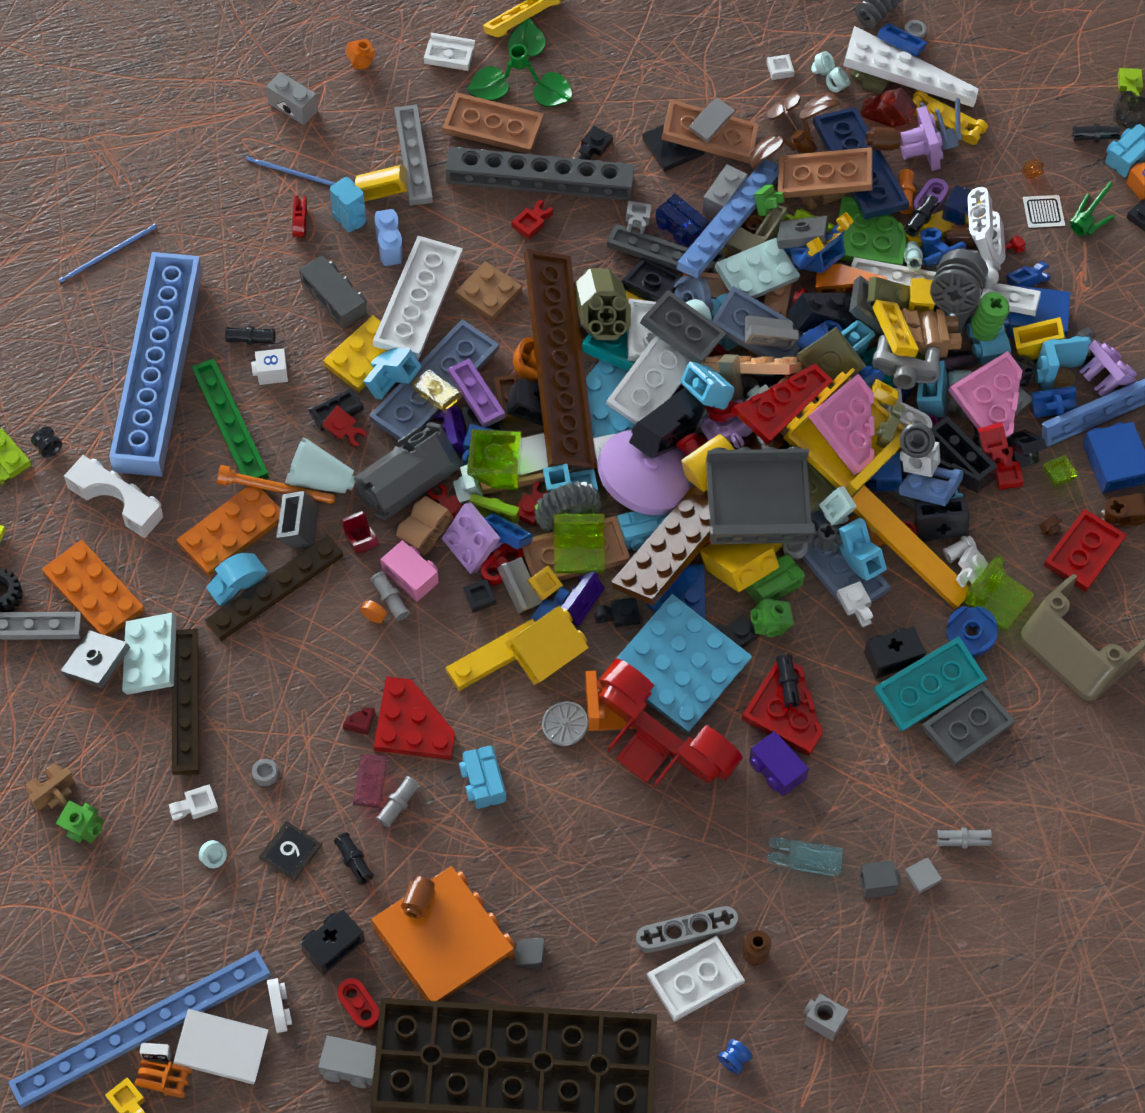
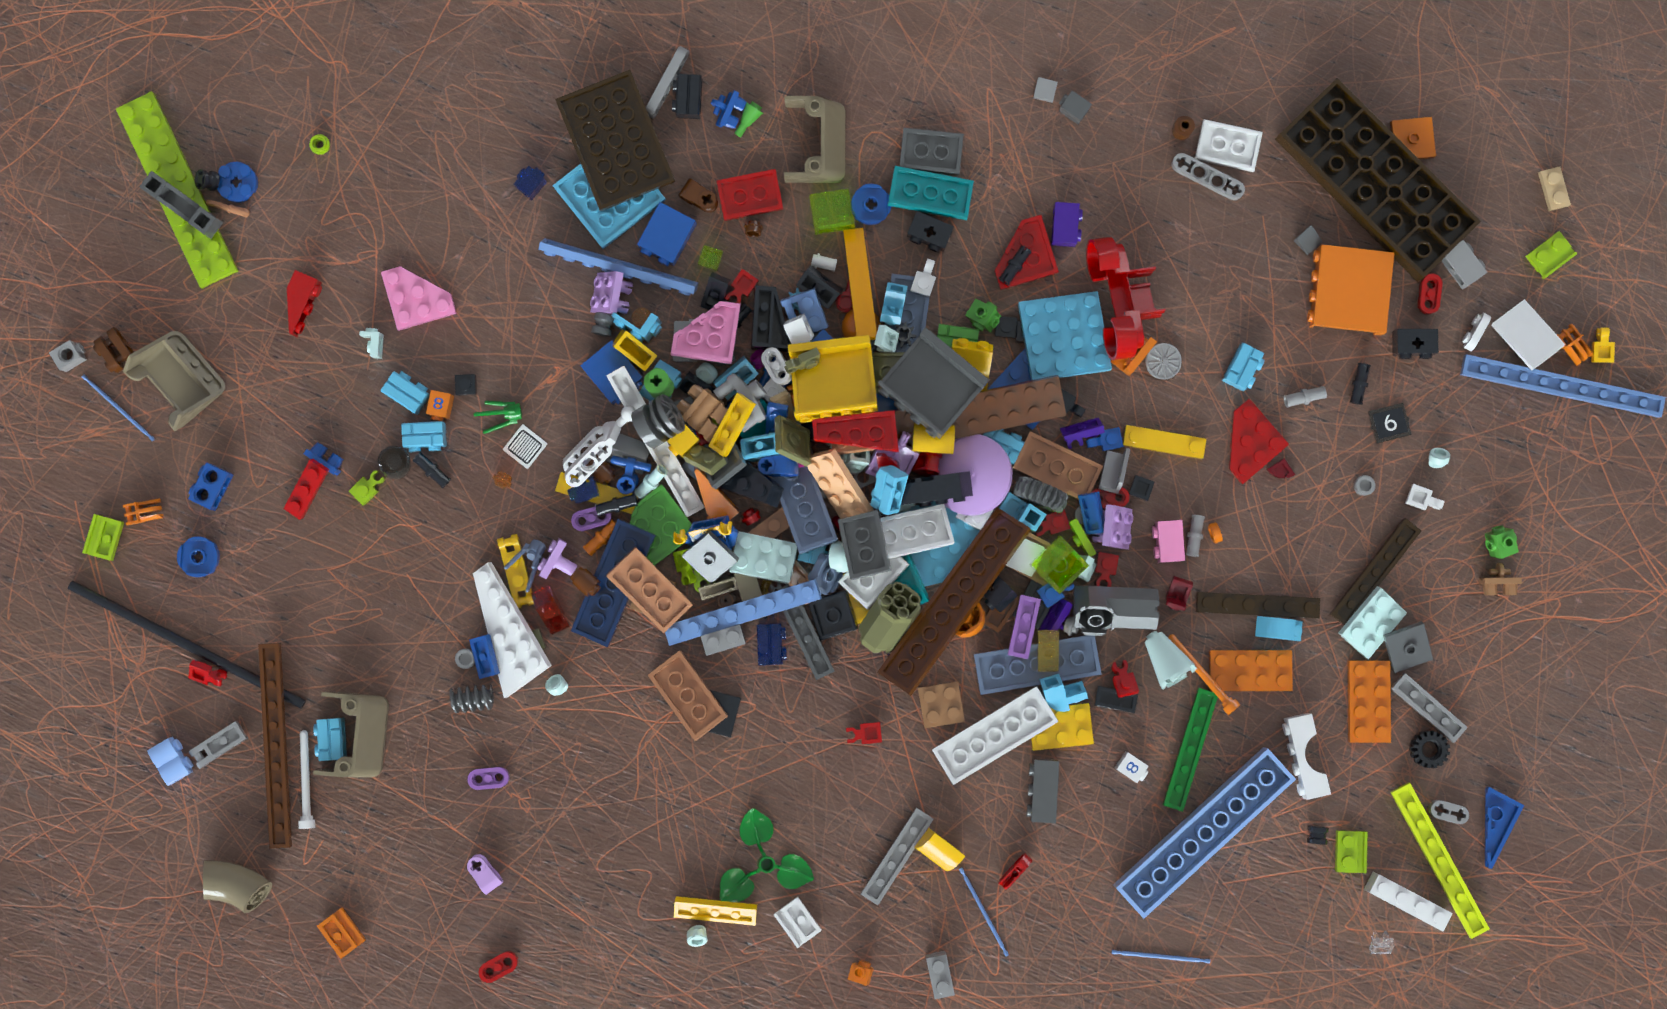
camera: 130 degrees left, 25 degrees up
(156, 1052) = (1566, 363): white tile -> none
(250, 335) = (1123, 804): black pin -> none
(297, 520) = (1208, 637): dark grey brick -> none
(348, 204) = (981, 846): medium azure brick -> none
(370, 781) = (1309, 424): clear pink plate -> none
(388, 237) = (975, 796): light blue brick -> none
(418, 897) = (1353, 317): dark orange brick -> none
(424, 525) = (1136, 563): medium nougat brick -> none
(493, 123) = (821, 834): nougat plate -> none
(540, 173) = (880, 816): dark grey brick -> none
(544, 583) = (1098, 458): yellow tile -> none
(547, 644) = (1134, 415): yellow brick -> none
(579, 543) = (1058, 461): clear neon green bracket -> none
(595, 142) = (766, 760): black plate -> none
(637, 215) = (794, 673): light grey plate -> none
(711, 119) = (682, 698): light grey slope -> none
(730, 371) = (864, 487): dark tan piece -> none
(735, 1056) = (1250, 81): blue wheel -> none
(767, 198) = (703, 607): bright green tile -> none
(770, 332) = (804, 501): light grey panel -> none
(780, 67) = (585, 711): white tile -> none
(801, 140) = (618, 630): reddish brown plant -> none
(807, 856) = (1099, 158): clear light blue hinge -> none
(830, 1027) = (1180, 50): light grey brick -> none
(840, 79) = (559, 663): light aqua tile -> none
(848, 423) = (831, 382): bright pink plate -> none
(884, 393) = (781, 389): yellow plate -> none
(917, 440) = (800, 332): dark grey brick -> none
(964, 838) = (1001, 88): light grey pin -> none
(972, 566) = (830, 242): white plate -> none
(993, 441) = (742, 302): red plate -> none
(1017, 244) = (570, 436): red hand -> none
(1028, 276) = (593, 405): blue plate -> none
(1028, 368) = (659, 343): black wheel -> none
(1054, 401) = (667, 302): blue hips -> none

